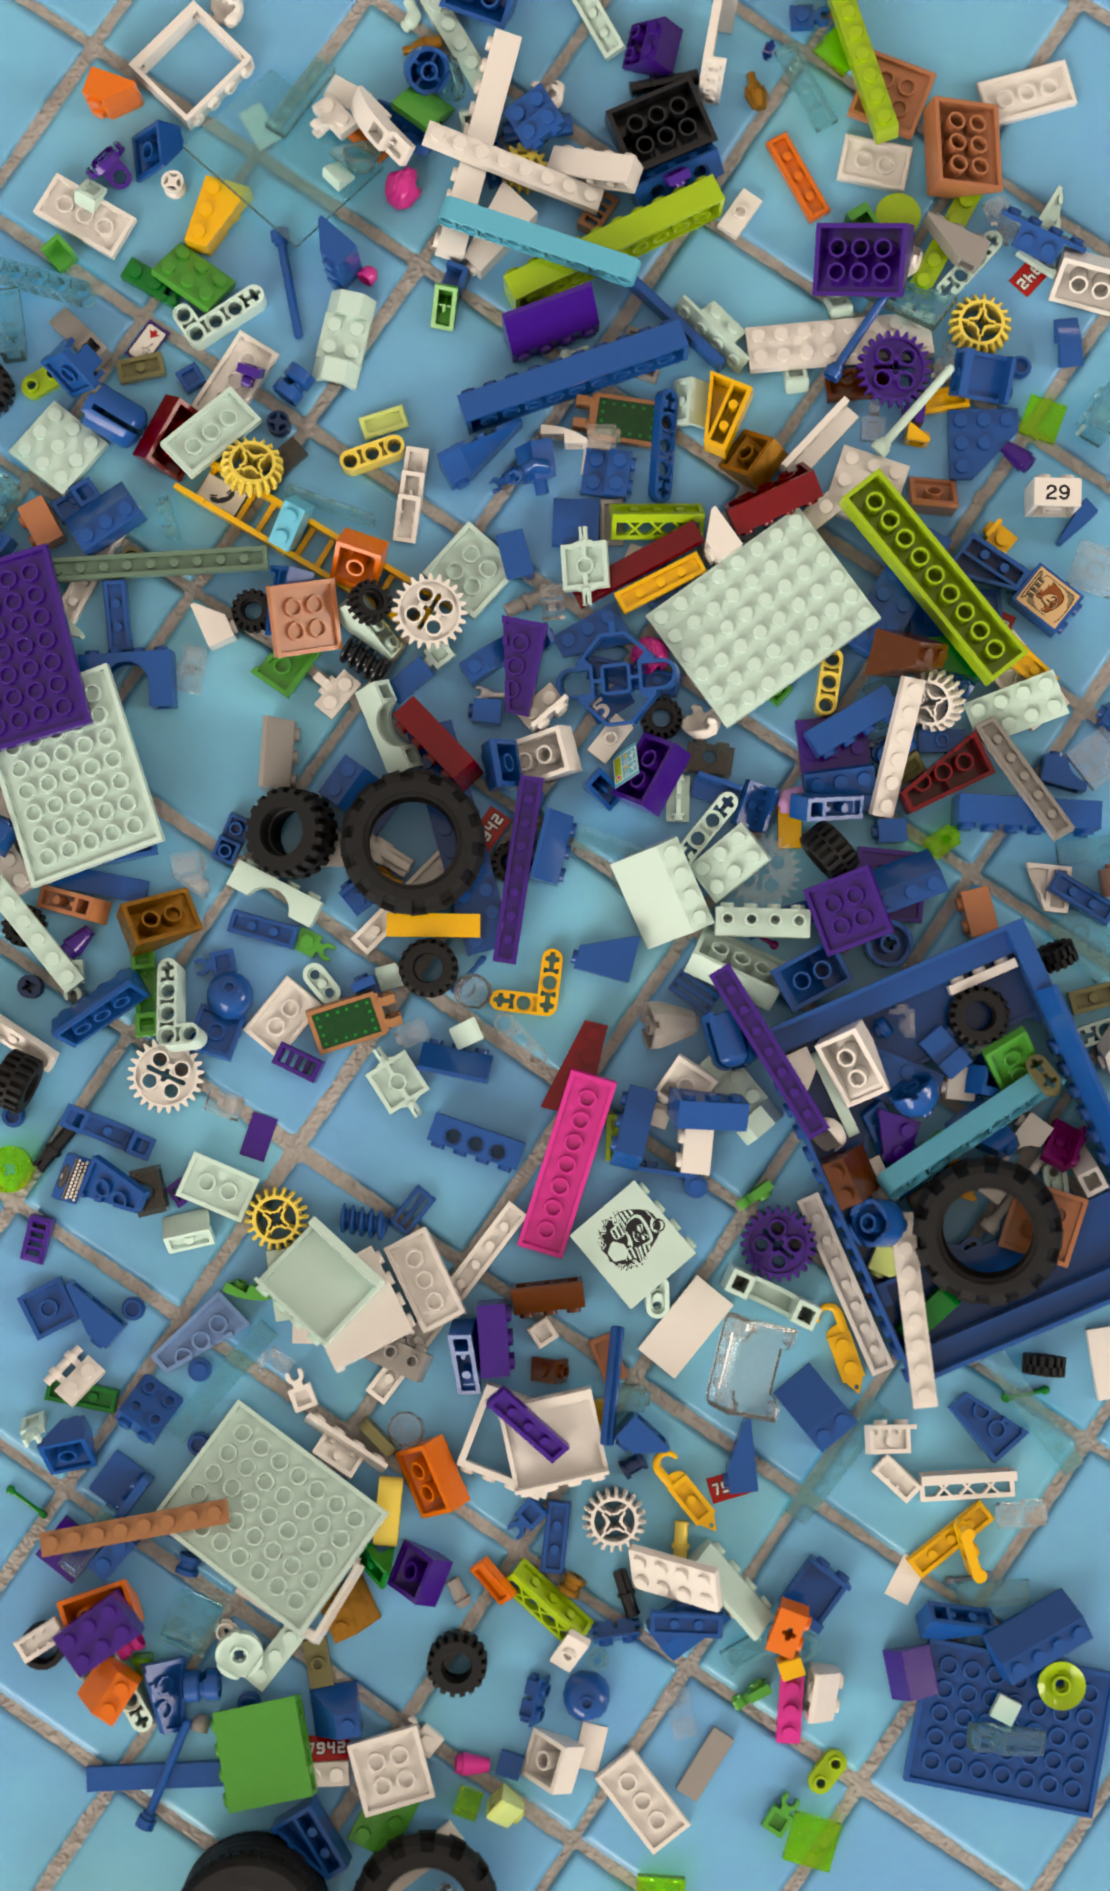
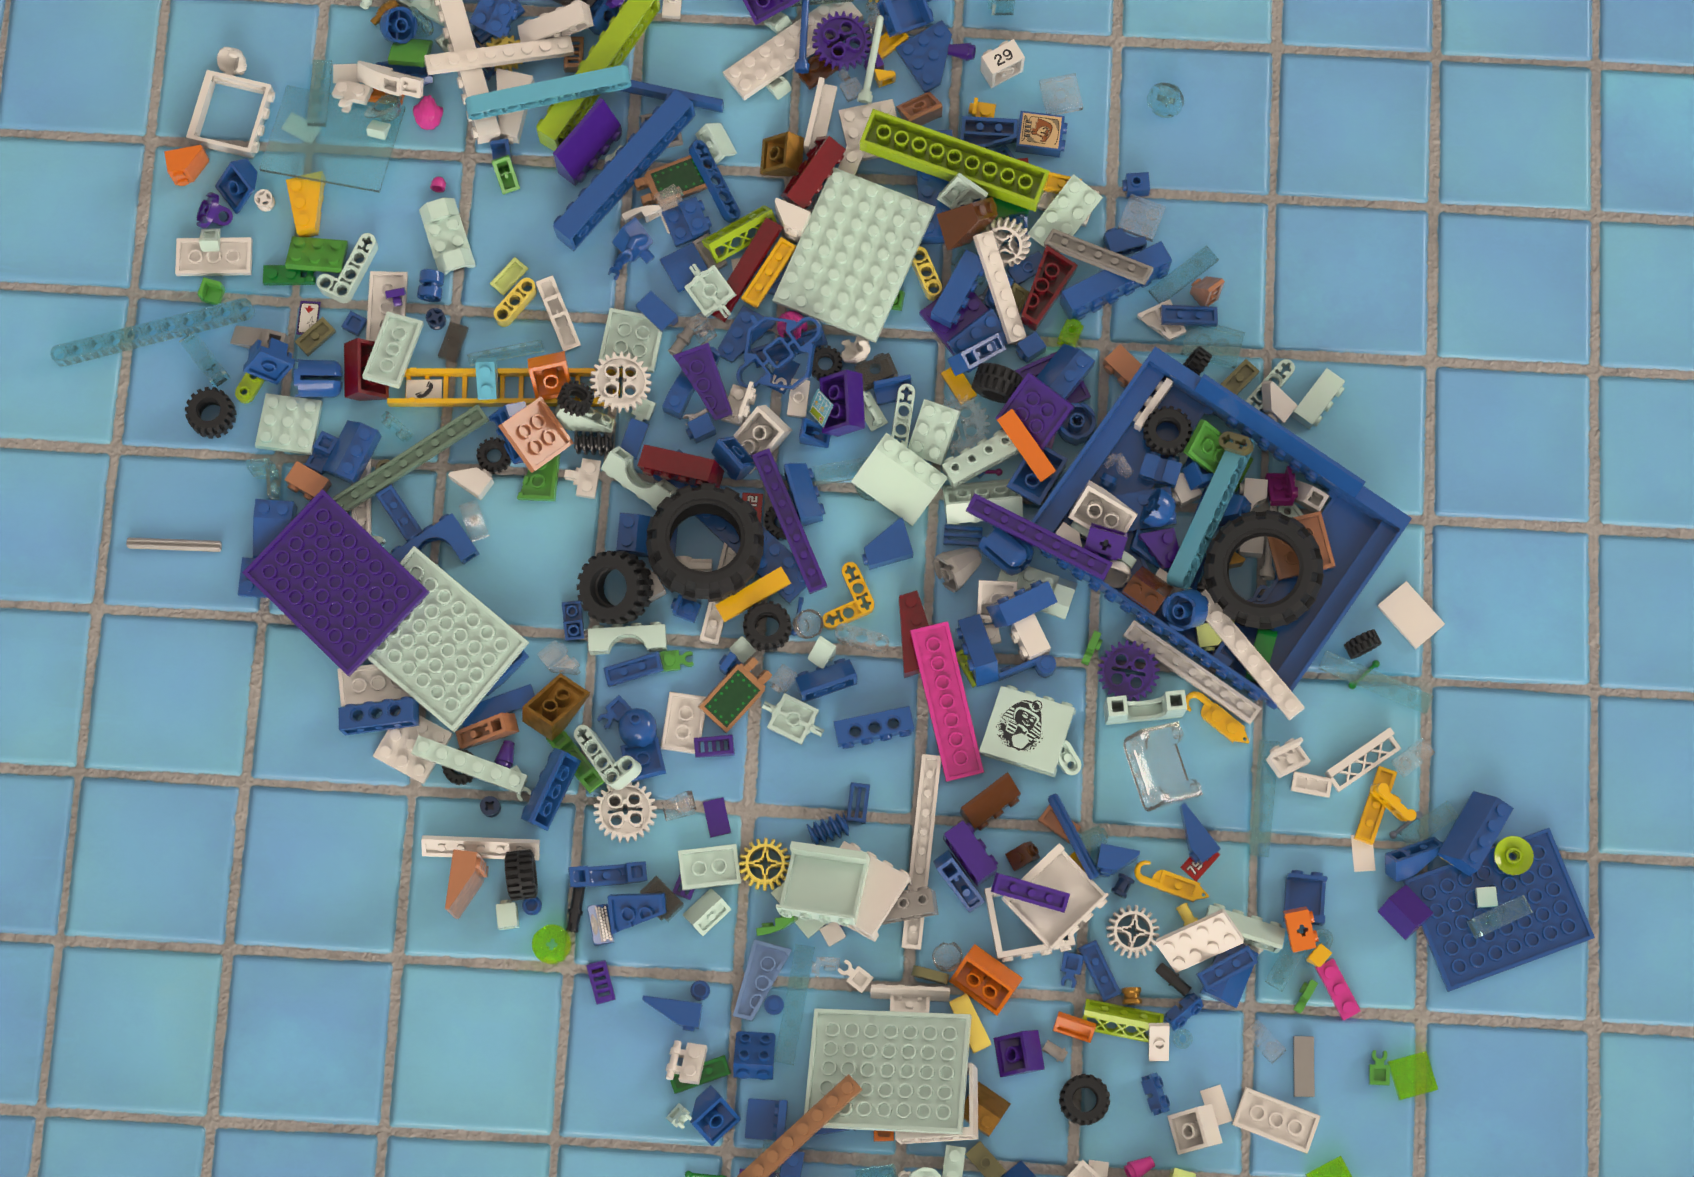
camera: 30 degrees left, 10 degrees down
(48, 1308) = (639, 1025): blue plate -> none
(188, 1564) = (850, 1147): blue wheel -> none
(196, 1442) = (803, 1057): blue plate -> none
(249, 476) = (434, 350): light yellow gear -> none
(278, 753) = (571, 540): light grey slope -> none
(281, 243) = (363, 196): blue piece -> none
(322, 984) = (698, 682): light aqua plate -> none
(338, 255) = (412, 180): blue slope -> none
(377, 1564) = (986, 1062): green slope -> none
(425, 1280) = (897, 843): white plate -> none
(465, 461) = (582, 267): blue wedge -> none
(509, 1764) = (1166, 1152): blue tile -> none
(543, 1332) = (1002, 833): white tile -> none
(586, 1695) = (1190, 1069): blue cylinder -> none
(685, 1326) = (1099, 768): white tile -> none
(717, 329) = (703, 83): light aqua bracket -> none
(725, 412) = (744, 135): yellow wedge -> none
(756, 806) = (928, 383): blue bracket -> none
(785, 798) = (945, 367): lavender arm -> none
(815, 1407) = (1225, 769): blue slope -> none
(818, 941) = (1026, 445): none -> orange tile
(821, 1692) = (1352, 963): white slope -> none
(825, 1771) = (1392, 1019): lime plate -> none
(849, 1102) = (1097, 536): none -> dark purple brick
(917, 618) = (960, 192): none -> light aqua wing
(988, 1428) = (1351, 712): blue wing -> none
(1042, 419) = (963, 18): clear neon green piece -> none
(1077, 521) = (1030, 65): blue slope -> none

